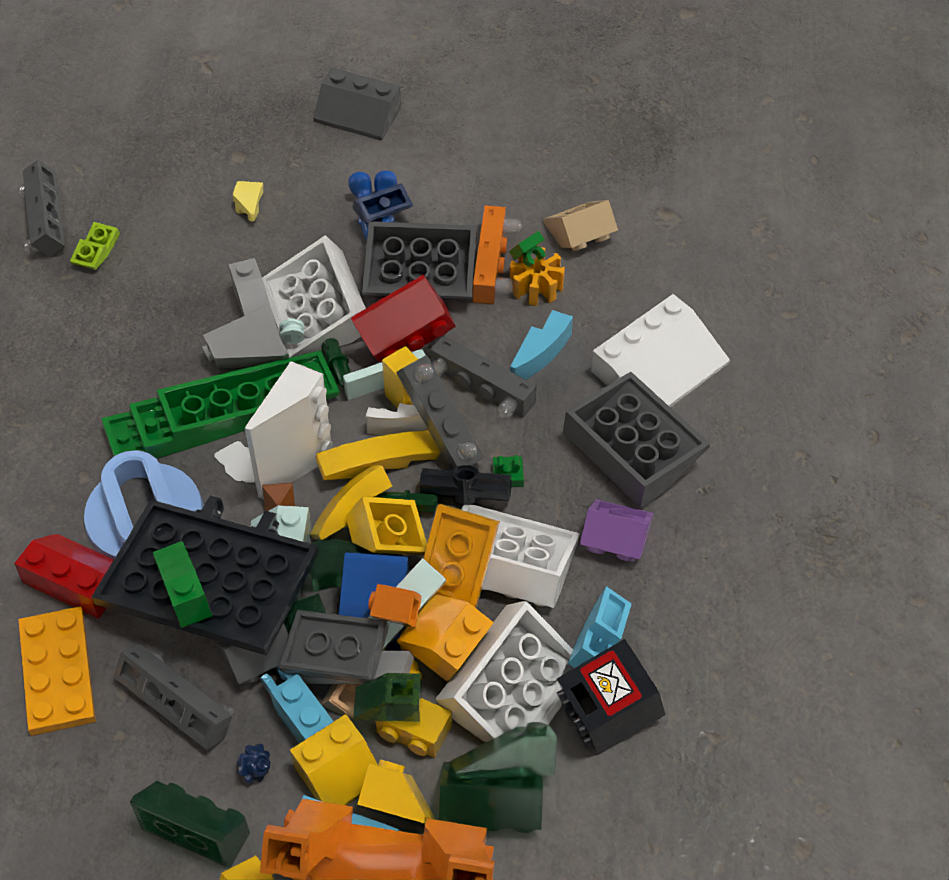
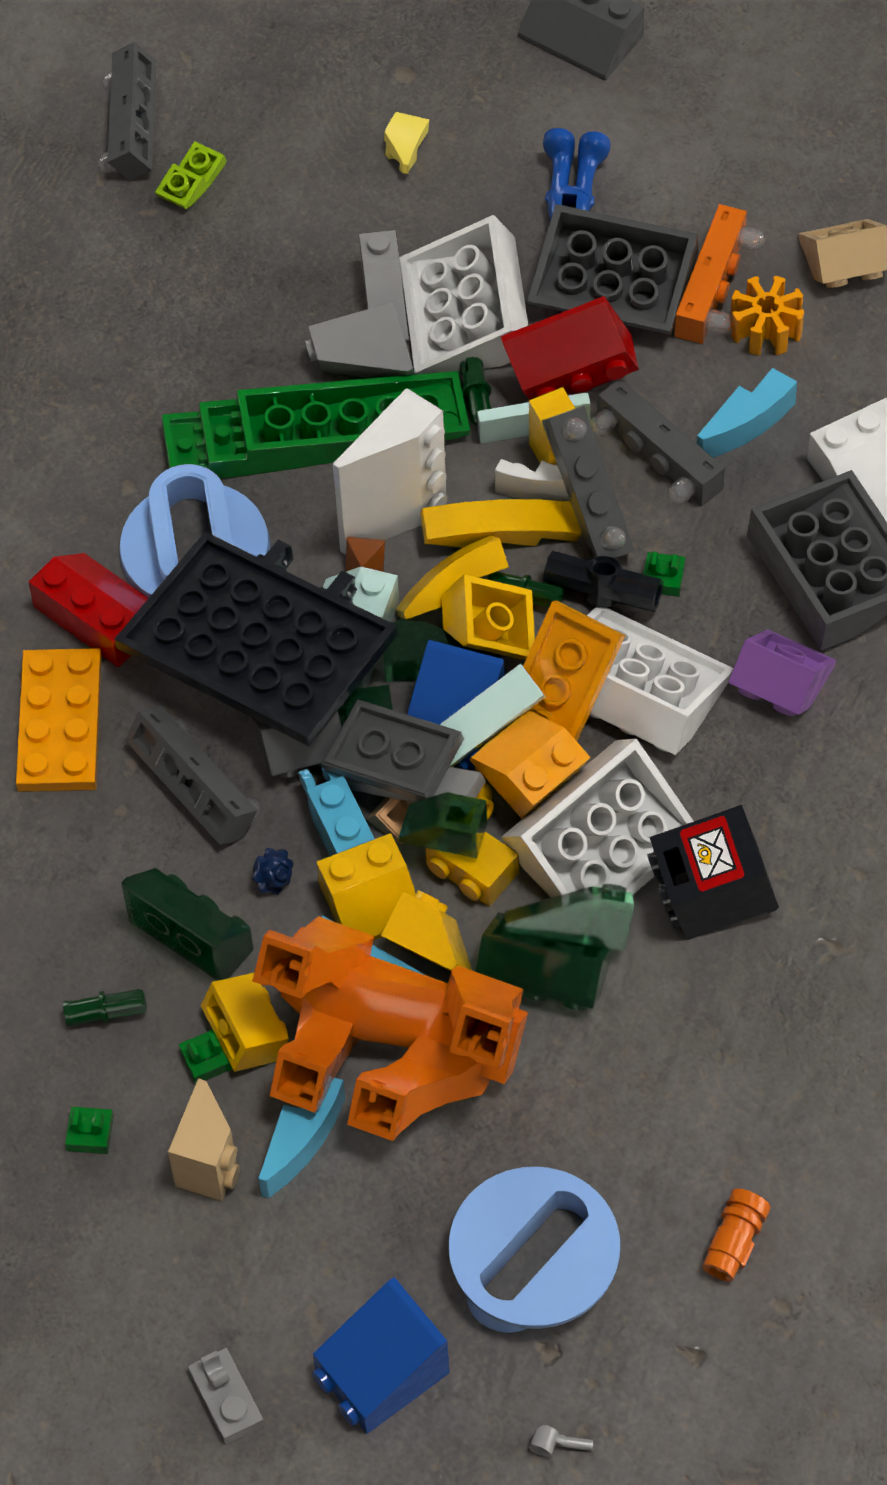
camera: 15 degrees right, 5 degrees up
(182, 584) = (224, 643): green slope -> none
(236, 462) = (320, 500): white sticker -> none
(291, 331) = (424, 339): light aqua bush -> none
(382, 203) = (581, 179): dark blue slope -> none
(395, 605) = (474, 714): orange brick -> none
(529, 246) = (760, 275): green tile -> none
(602, 628) = (731, 786): medium azure slope -> none

